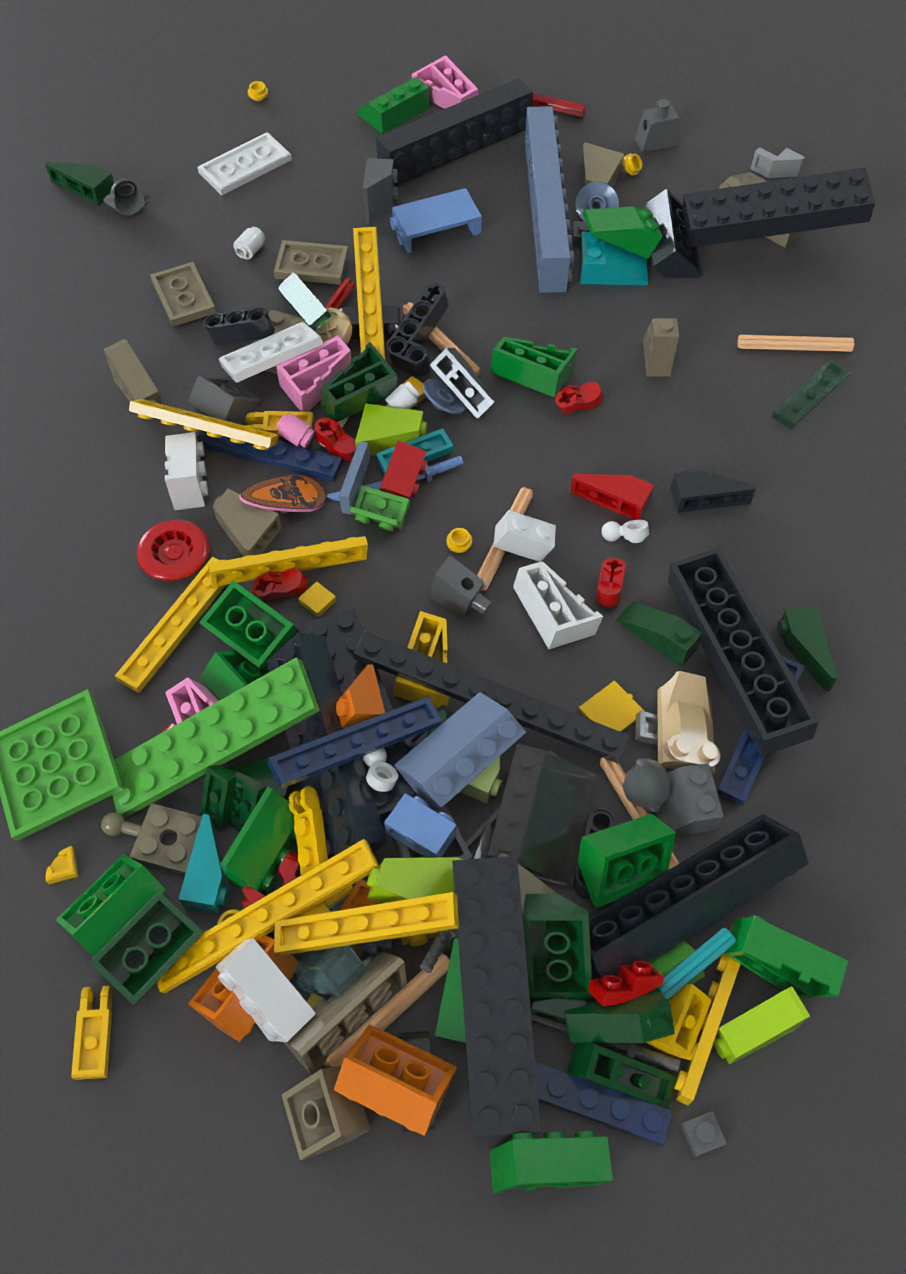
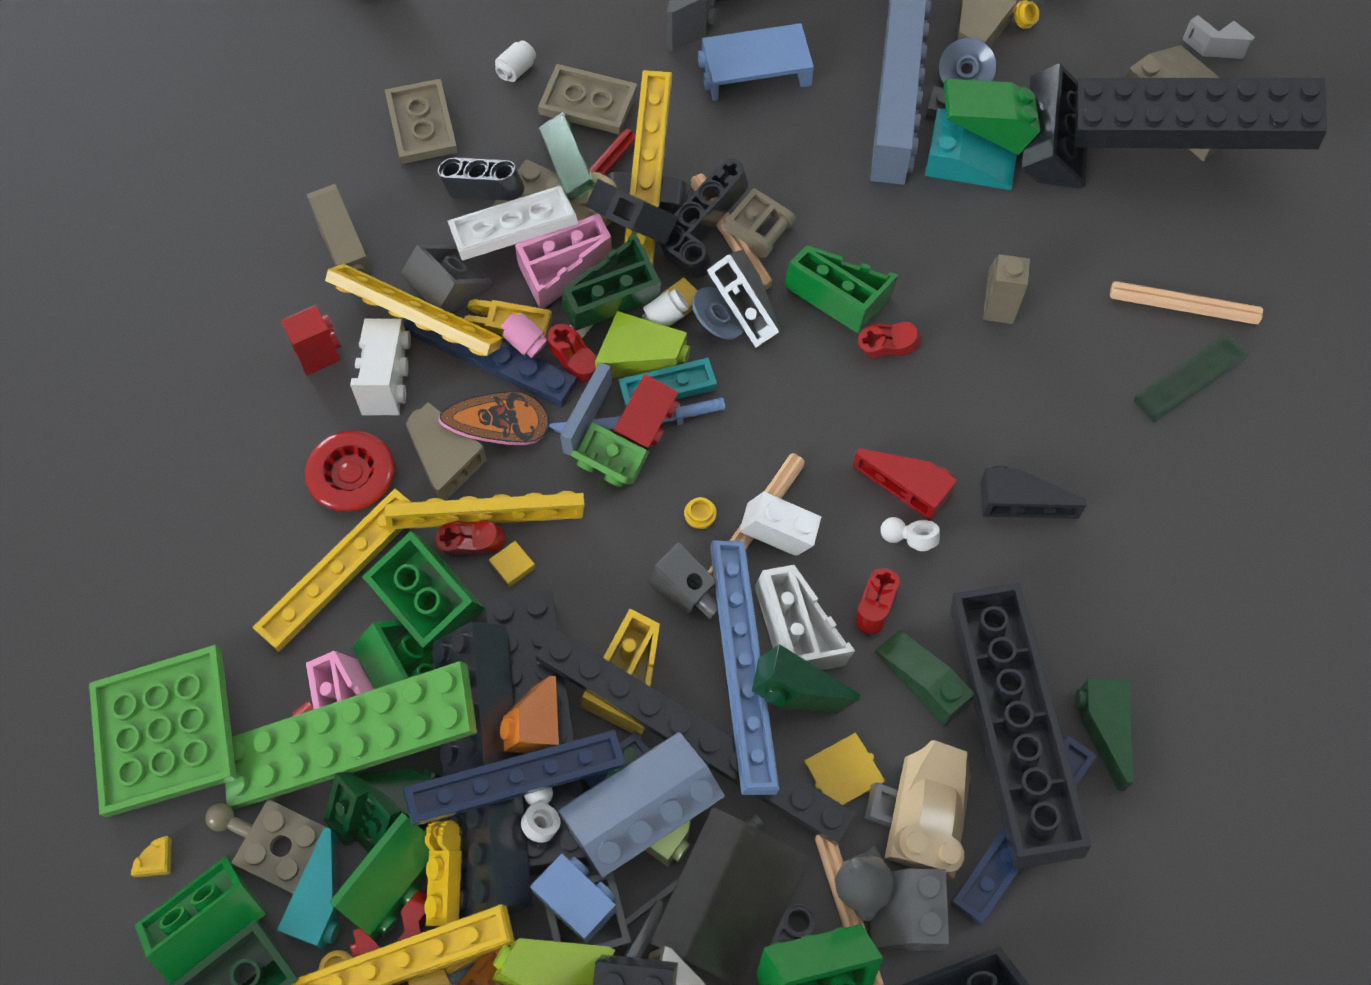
camera: 10 degrees right, 5 degrees up
(125, 456) = (312, 339): none -> red piece
(363, 329) = (632, 212): none -> black slope
(455, 325) = (752, 215): none -> dark tan plate
(520, 643) = (741, 655): none -> medium blue tile
(566, 646) = (798, 685): none -> dark green slope

